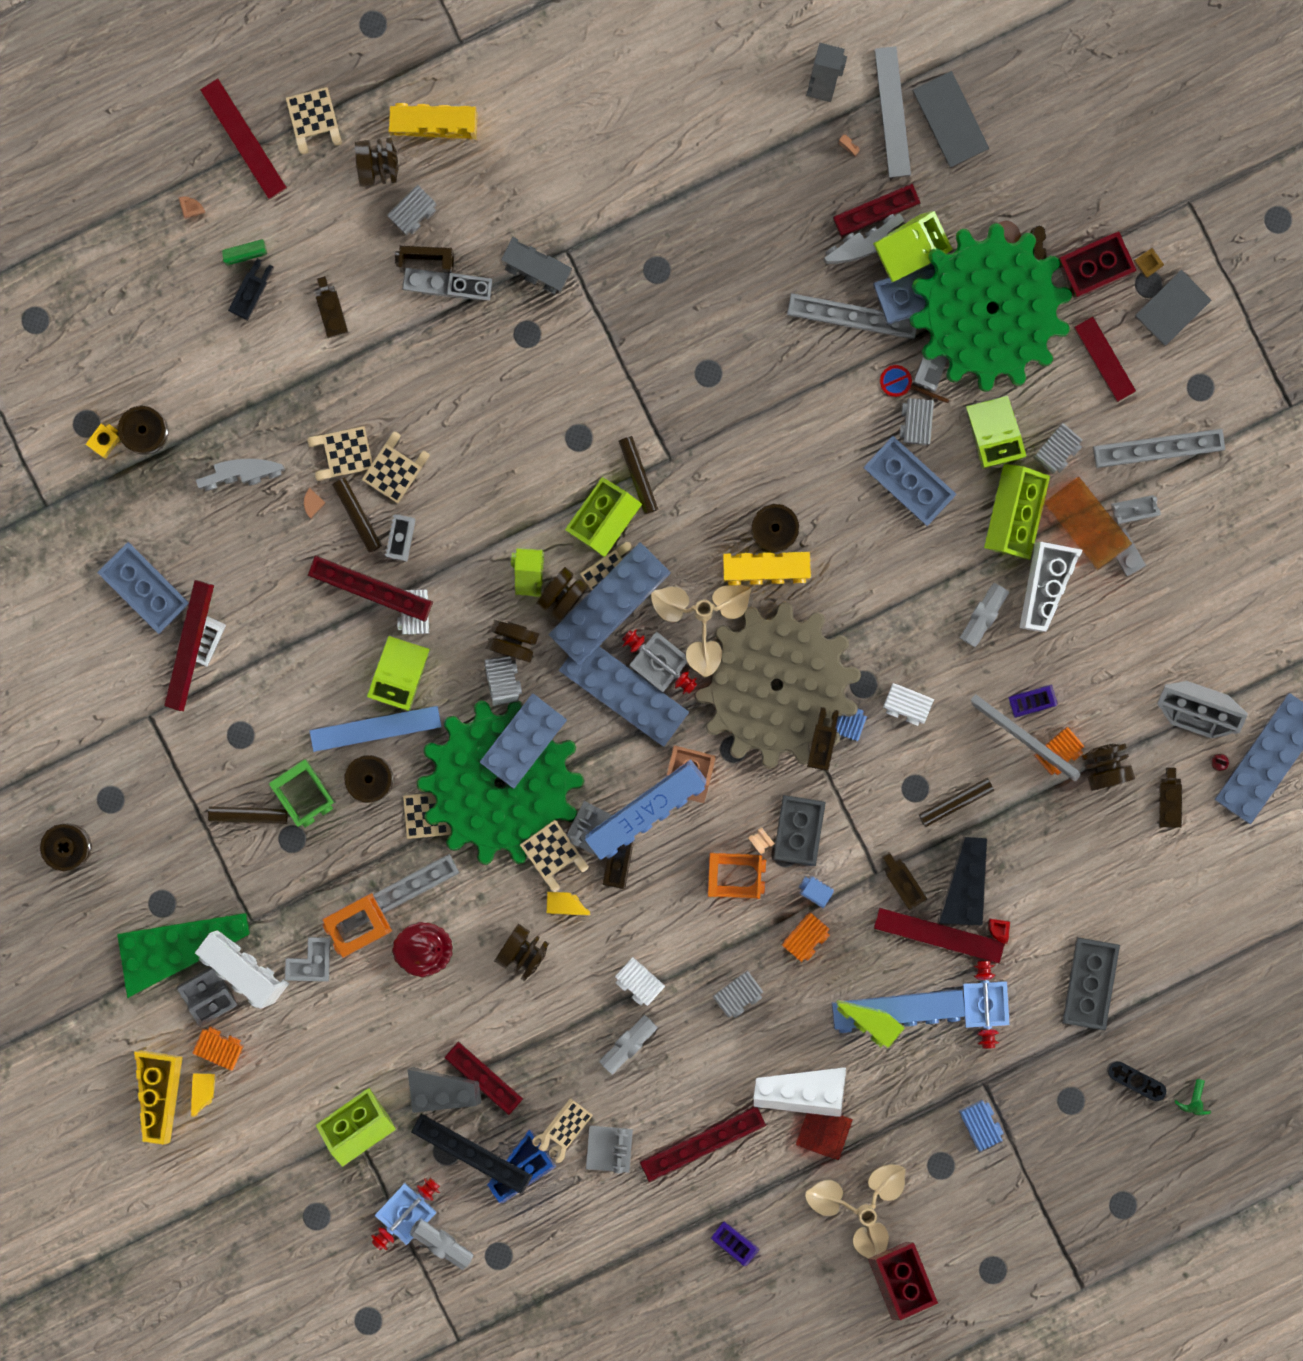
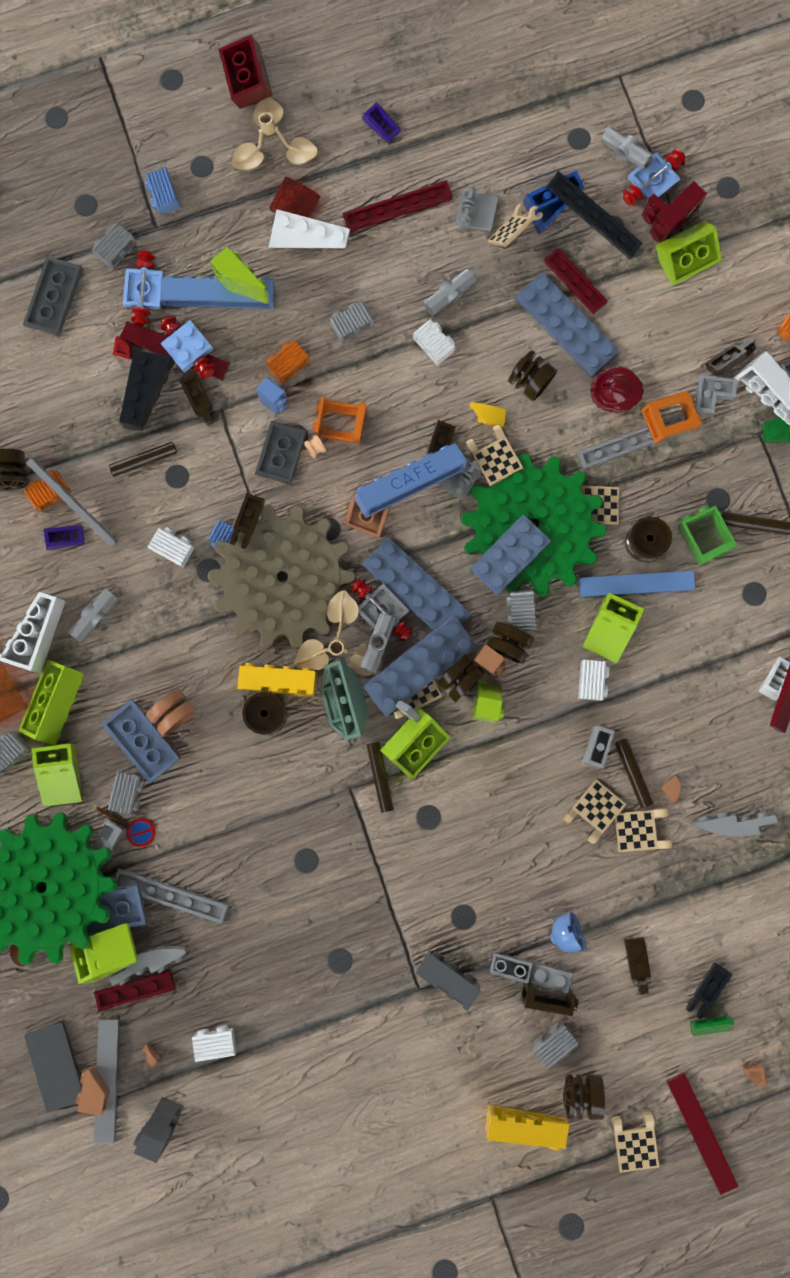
camera: 170 degrees left, 5 degrees down
(295, 1006) = (730, 357): none -> dark brown hinge
(370, 588) = (629, 705): dark red tile -> none
(383, 1159) = (669, 219): none -> dark red brick
(411, 330) = (567, 934): none -> medium blue cylinder
(439, 1091) = (614, 270): dark grey wedge -> none
(488, 1024) = (566, 324): none -> sand blue plate
(530, 616) = (491, 662): none -> nougat slope
(615, 550) = (408, 711): none -> light grey tile
(662, 607) = (374, 654): none -> light grey piece
(689, 553) = (344, 700): none -> sand green wedge
(781, 165) = (214, 1044): none -> white brick
(879, 515) = (171, 712): none -> nougat wheel
(902, 98) = (94, 1093): none -> nougat slope
(923, 938) = (187, 346): none -> light blue plate
(1028, 1051) = (113, 245): none -> light grey brick
(1148, 1093) = (24, 205): black beam -> none

